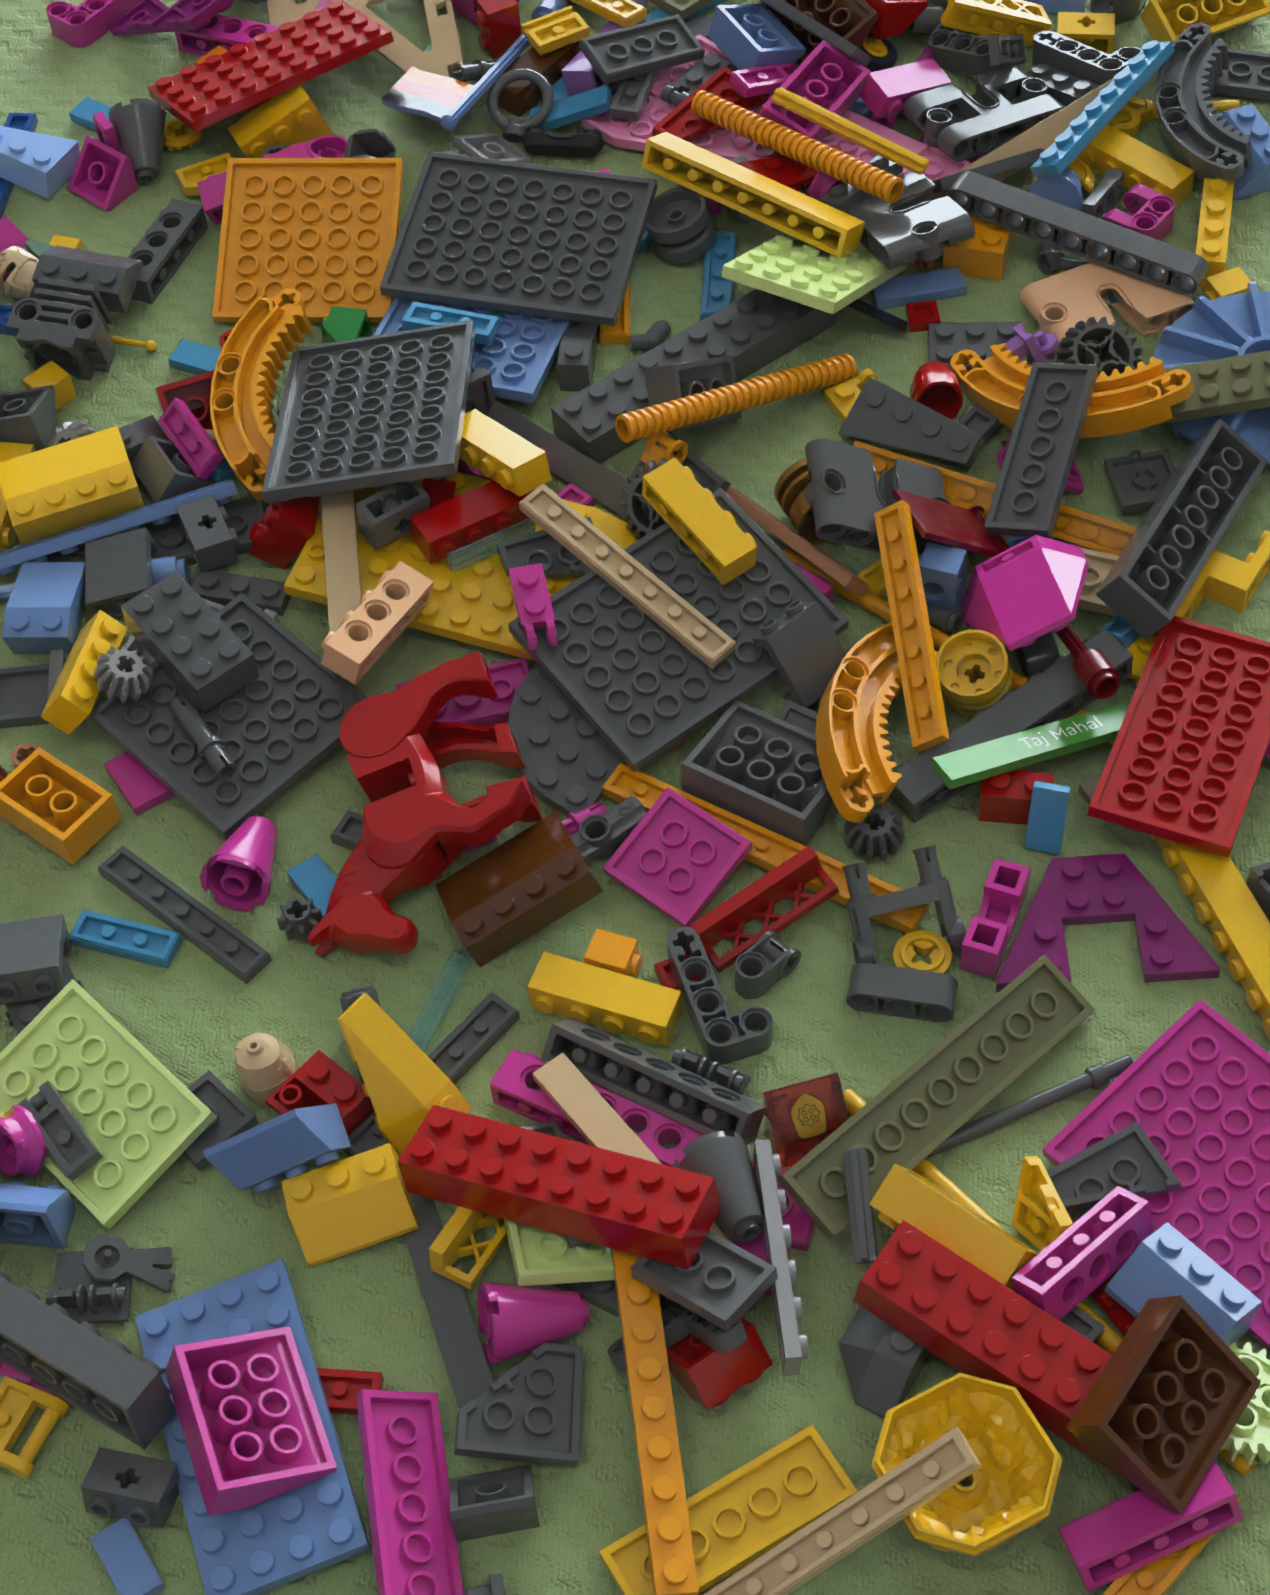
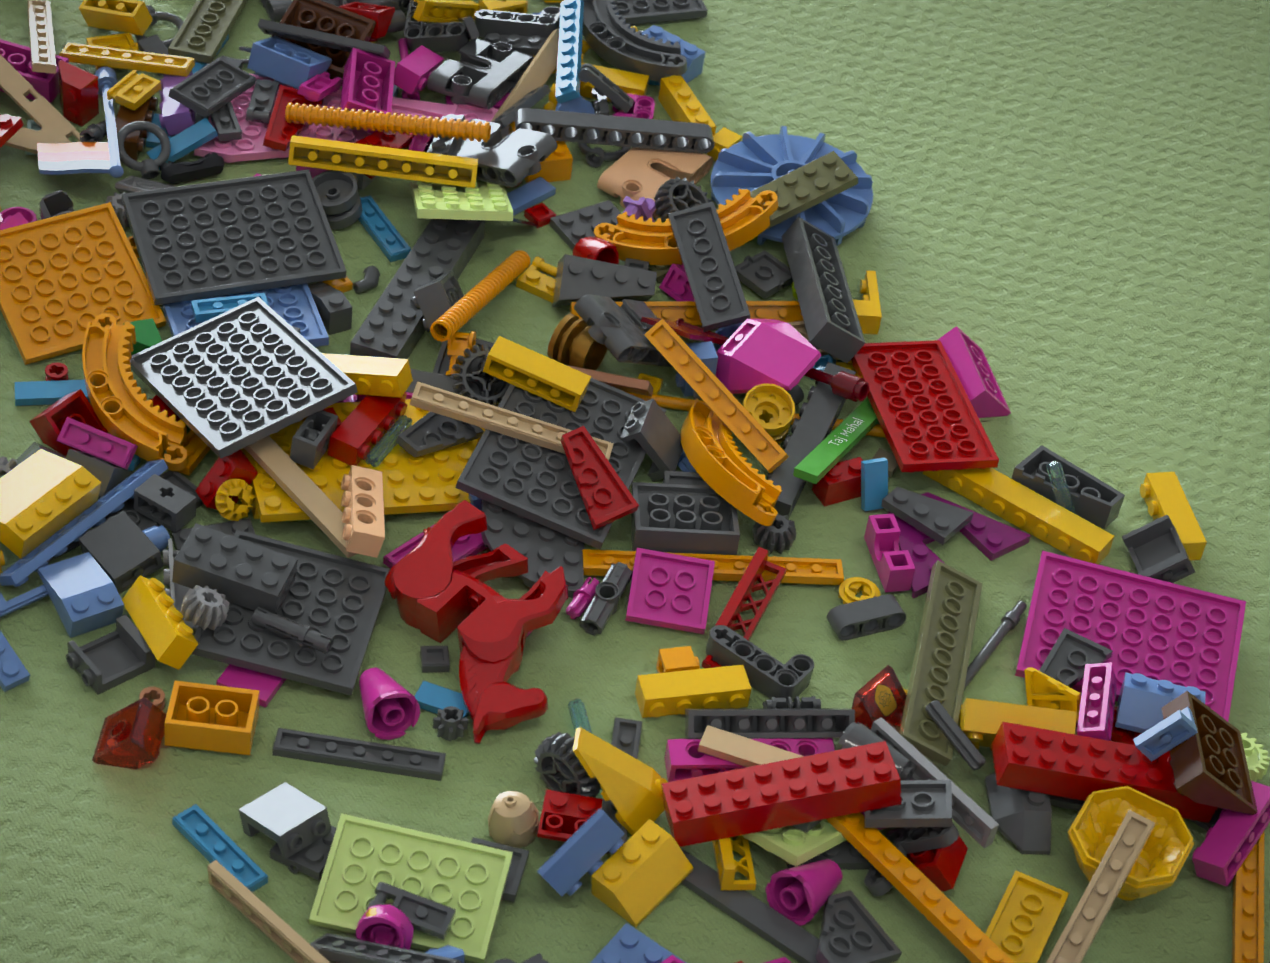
camera: 45 degrees left, 10 degrees down
(125, 939) = (336, 784): dark azure tile -> none
(271, 542) = (226, 506): none -> yellow gear
(517, 889) = (585, 645): reddish brown slope -> none
(533, 603) = (469, 463): dark pink hinge -> none
(673, 689) = (598, 483): none -> red wing
(767, 960) = (772, 633): dark grey piece -> none
(850, 131) = (420, 102): yellow axle -> none
(930, 889) = (844, 550): dark grey connector -> none
(1090, 886) = (926, 514): none -> dark grey wing
(1107, 1342) = (1166, 734): none -> medium blue panel
(1112, 171) = (606, 87): none -> dark grey plate

